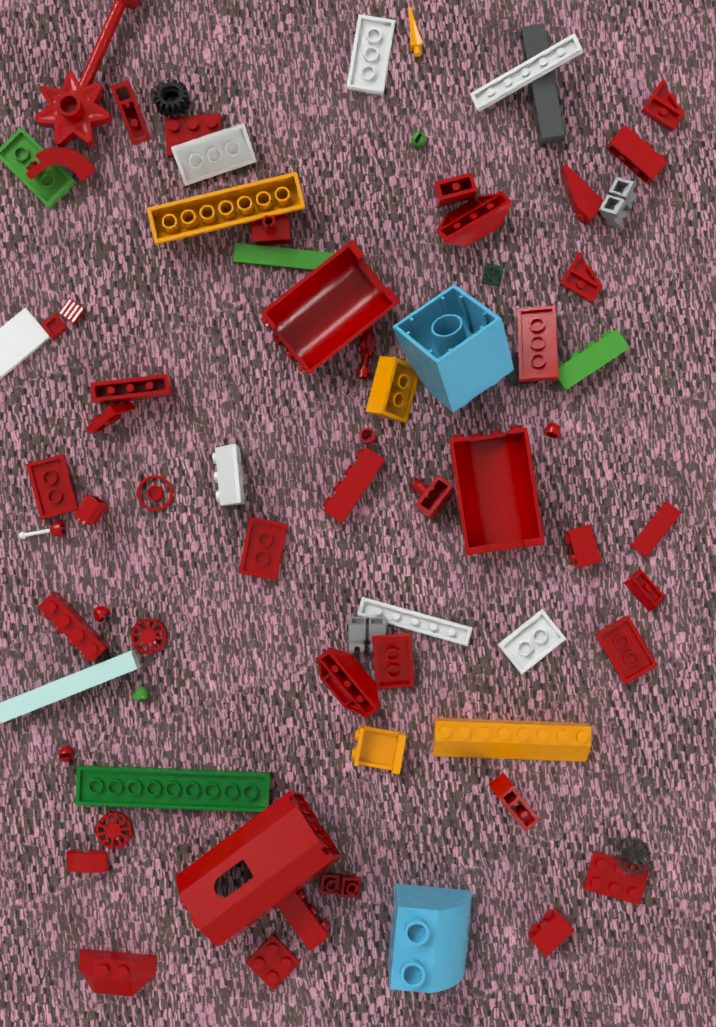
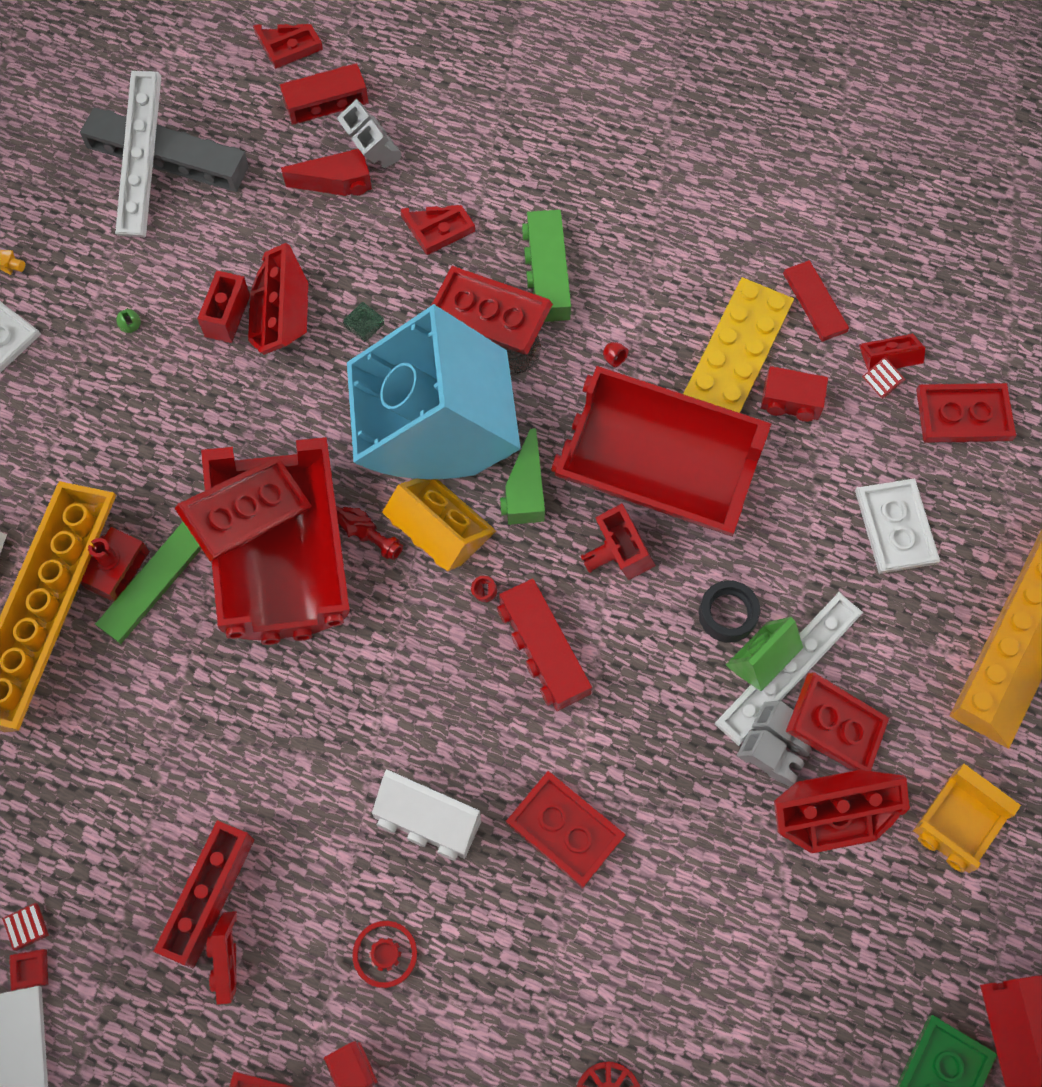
camera: 60 degrees left, 20 degrees down
(334, 283) = (243, 508): none -> red tile
(413, 605) = (767, 652): none -> bright green slope
(437, 425) = (524, 487): none -> bright green slope
(442, 574) = (735, 589): none -> black tyre
(593, 499) = (739, 346): none -> yellow plate
(622, 592) = (884, 378): none -> tile

